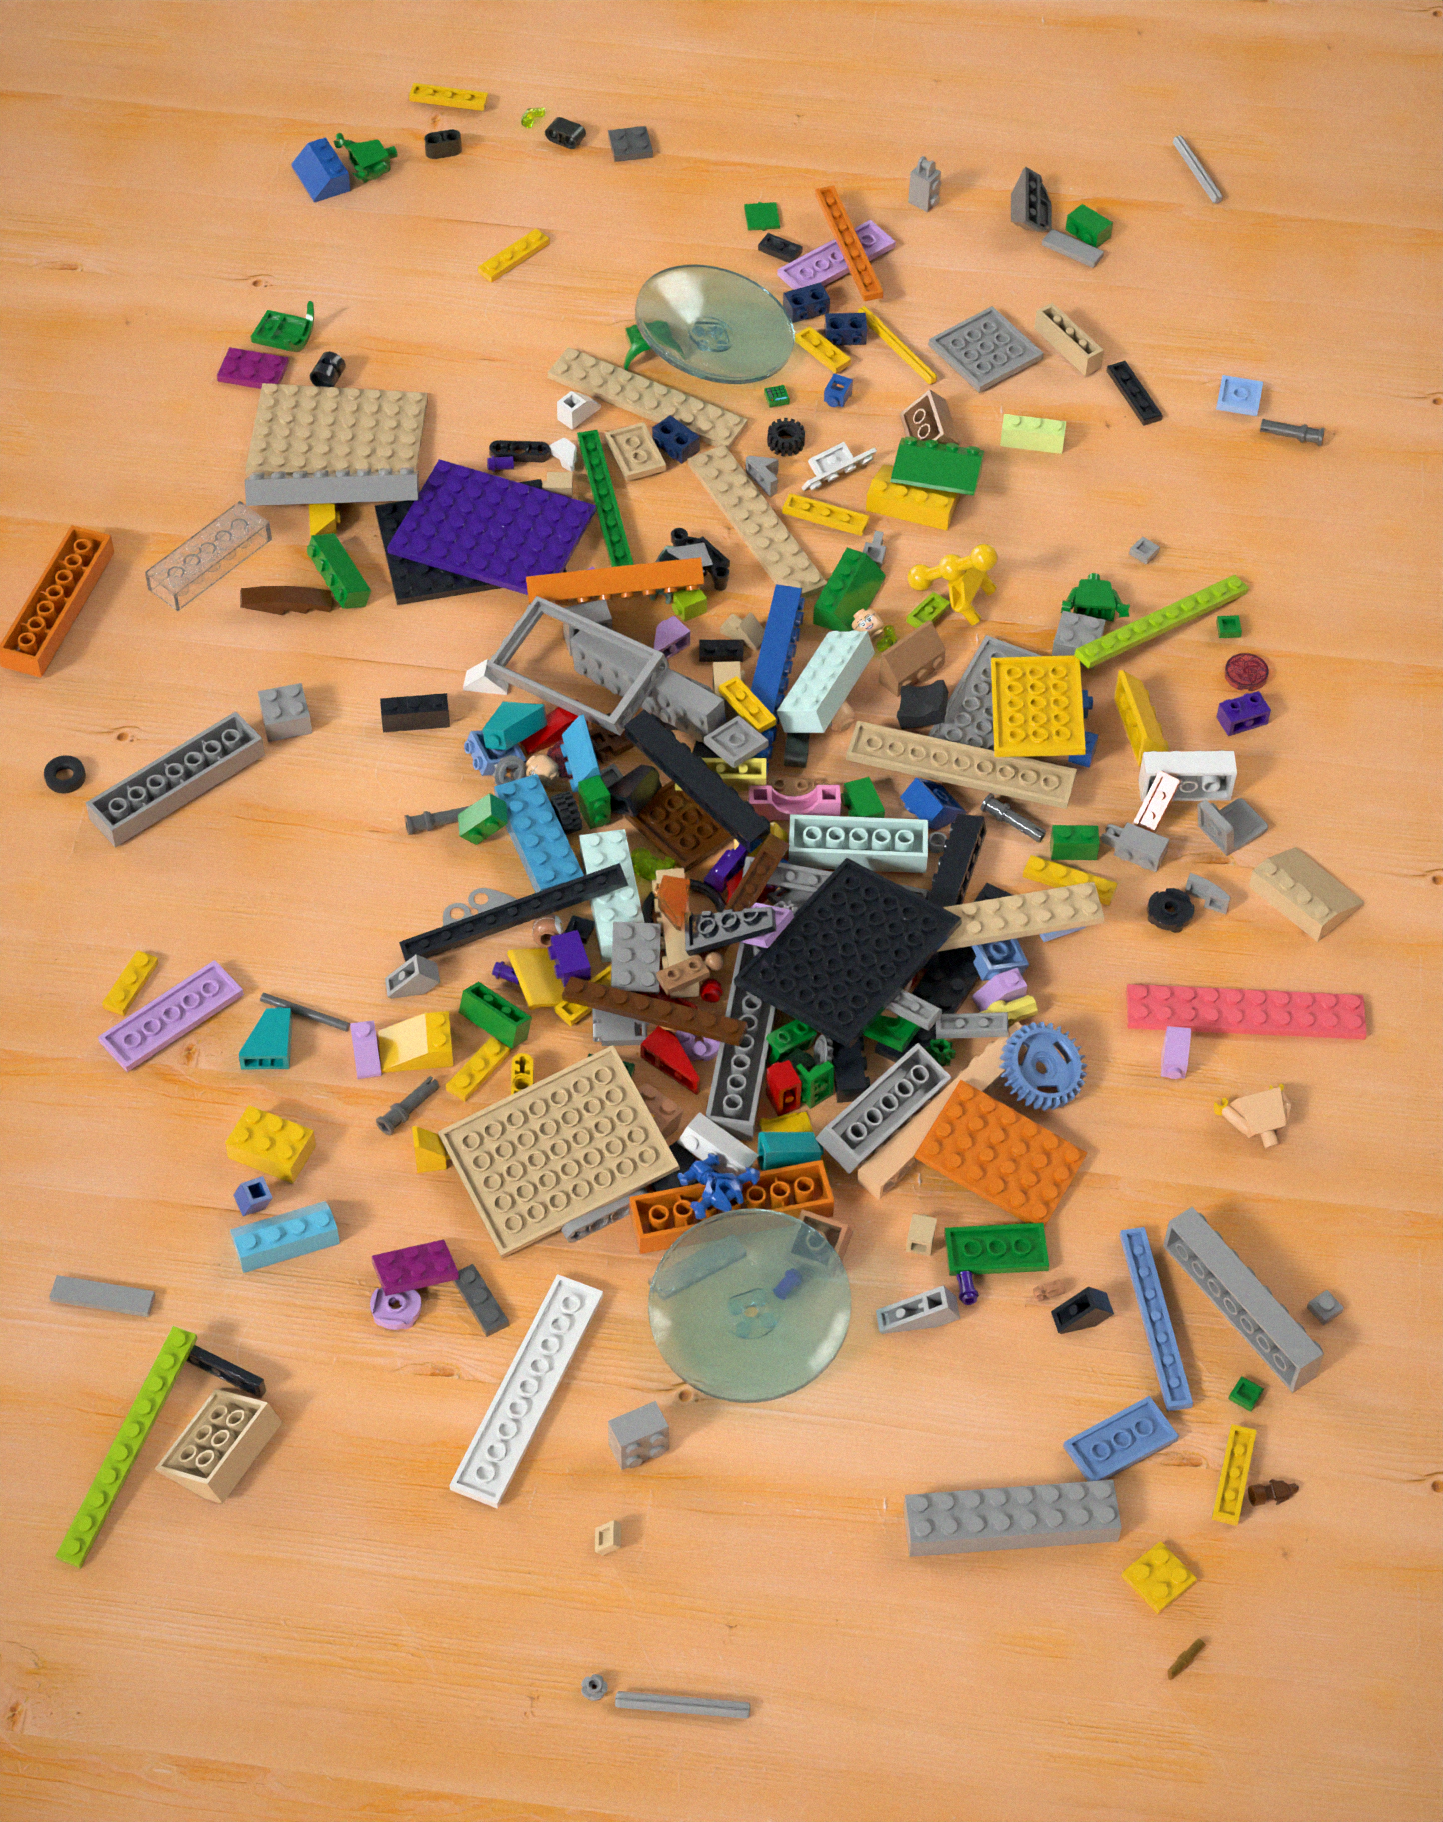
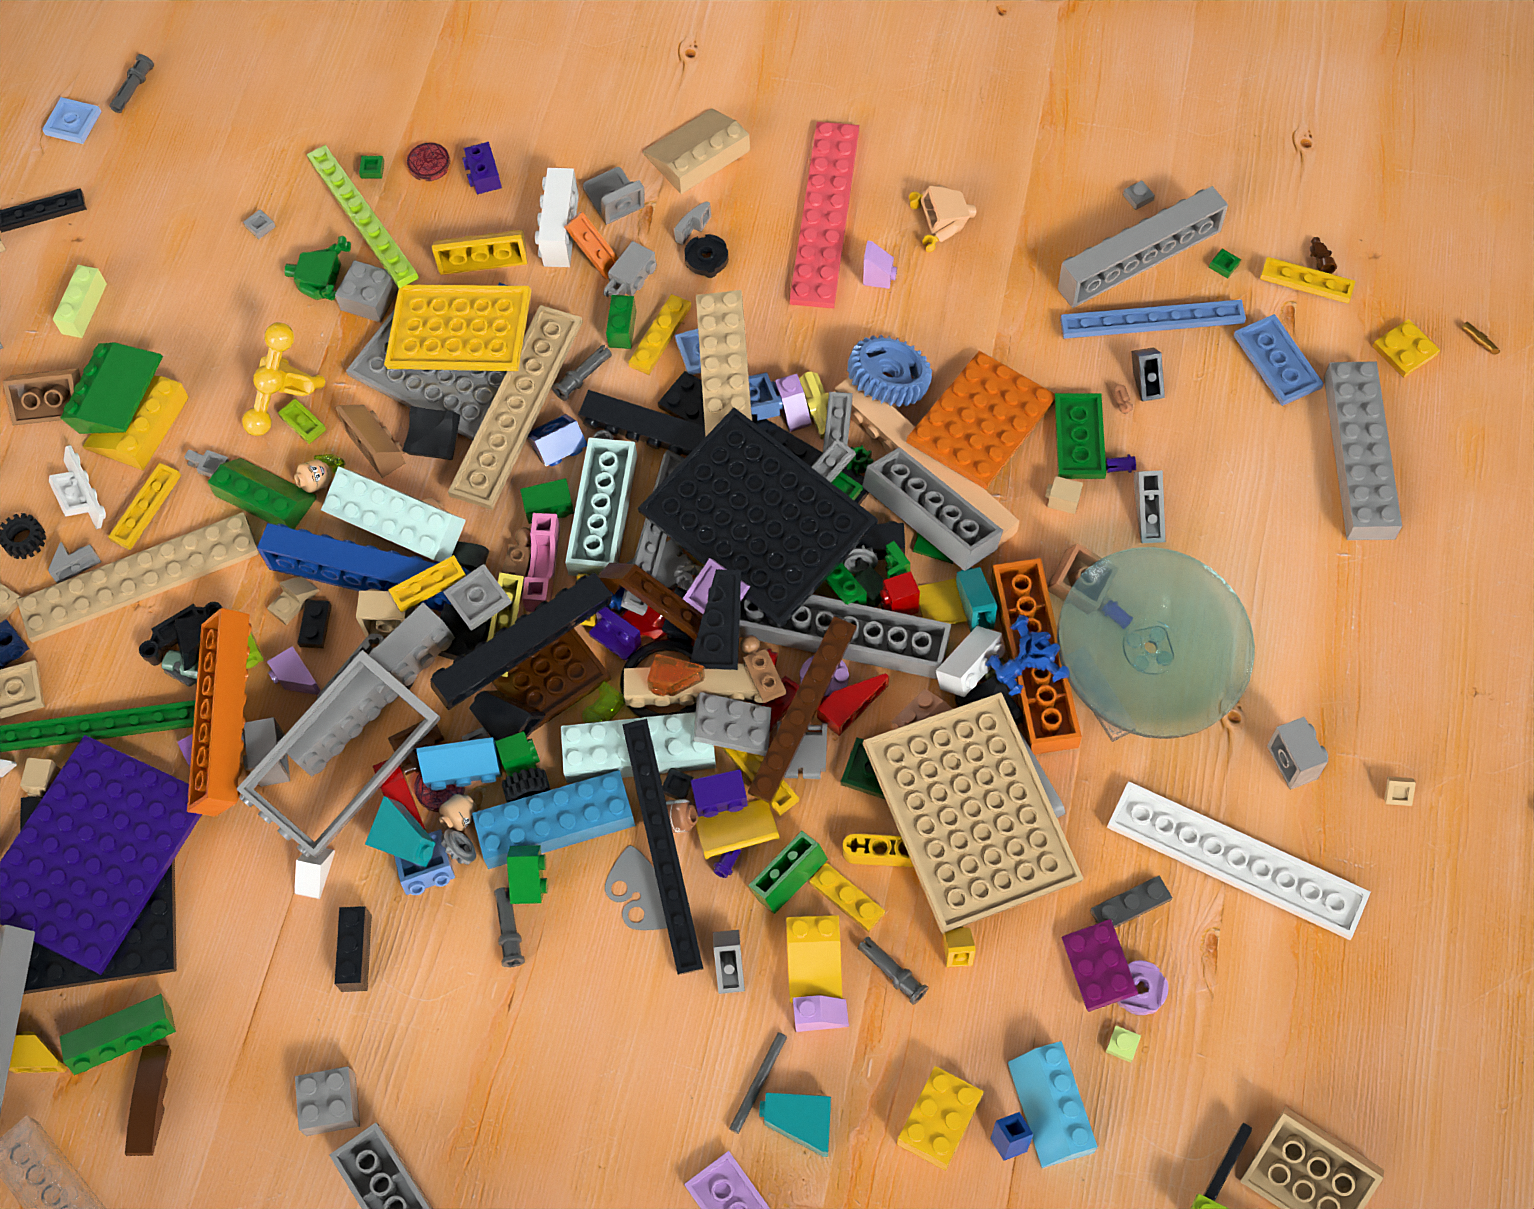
camera: 80 degrees left, 10 degrees up
(343, 1293) = (1123, 1044): none -> yellowish green plate

